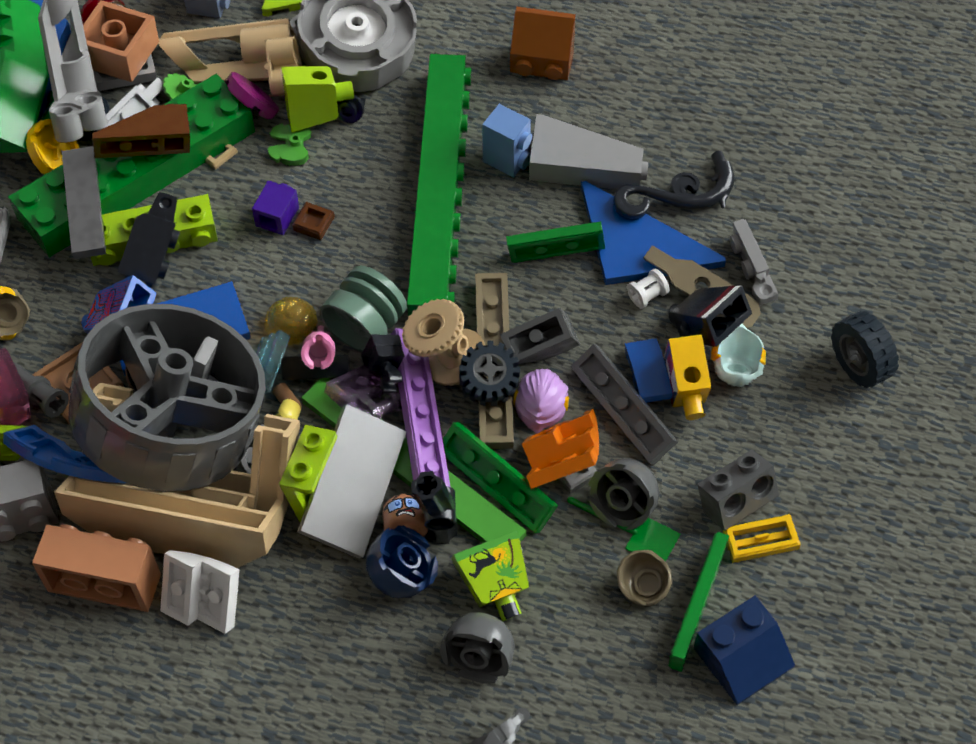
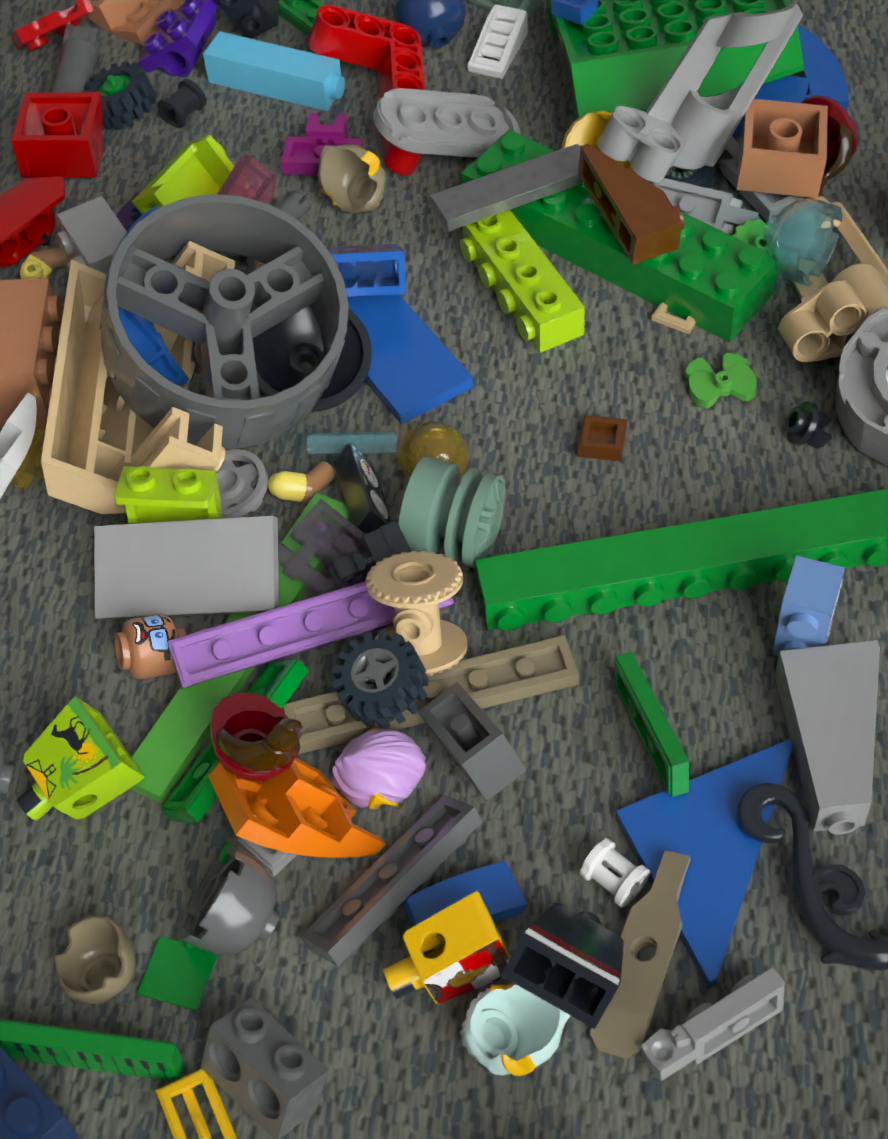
camera: 80 degrees right, 5 degrees down
(149, 241) = (476, 270): black hinge -> none
(204, 358) = (287, 354): light grey tile -> none
(206, 53) = (802, 238): none -> clear light blue cylinder
(251, 95) = (761, 302): magenta tile -> none
(275, 207) = (602, 387): dark purple brick -> none
(312, 95) = (785, 362): lime torso -> none
(318, 349) = (357, 468): bright pink piece -> none
(401, 563) = (90, 666): dark blue cylinder -> none
(438, 506) = (139, 656): black piece -> none
(526, 443) = (254, 737): none -> piece

